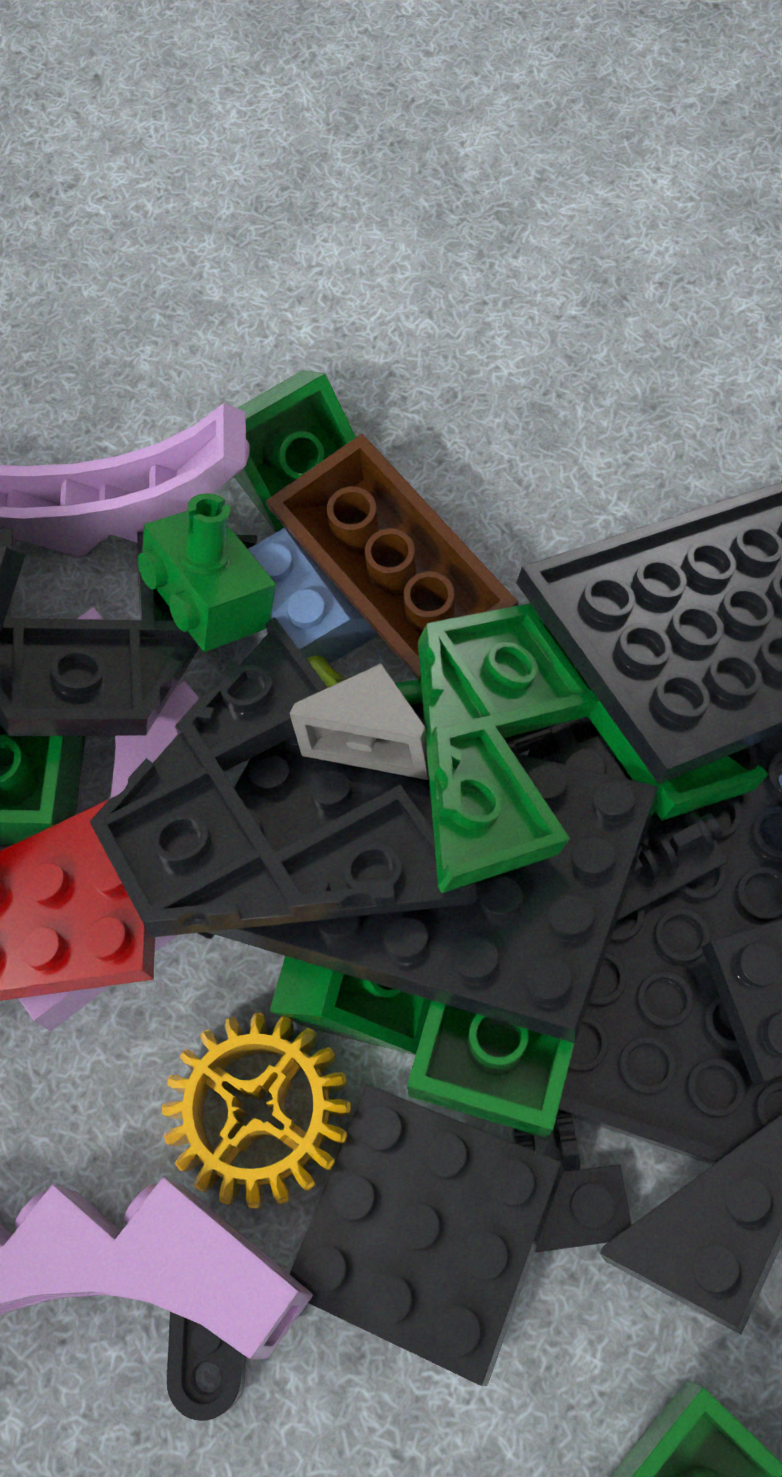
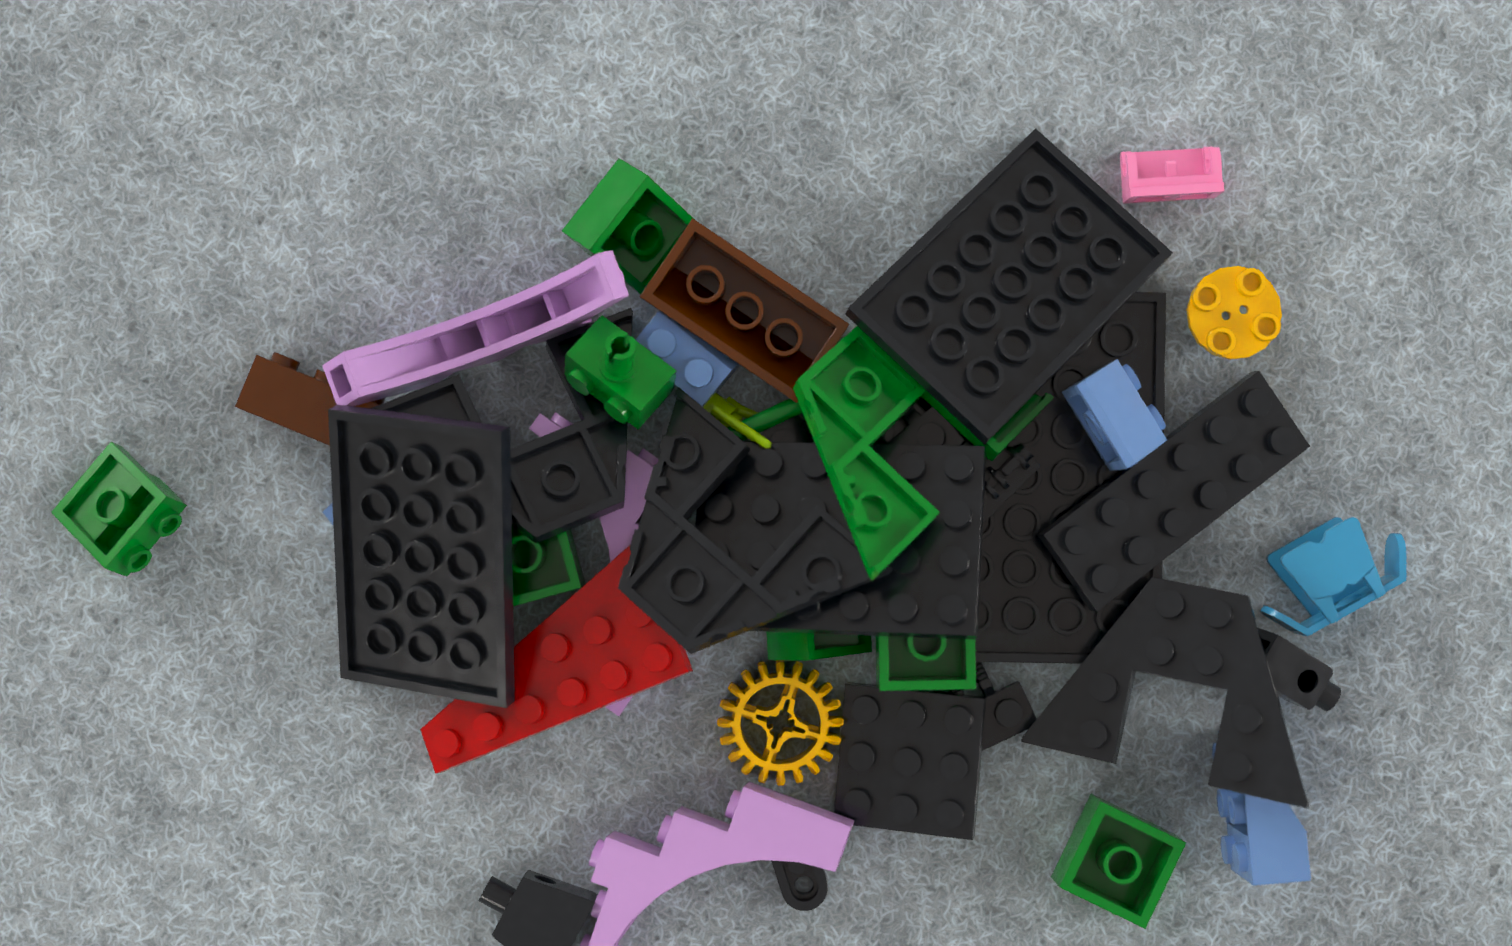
camera: 20 degrees left, 20 degrees up
(363, 726) = (776, 460): light grey slope -> none

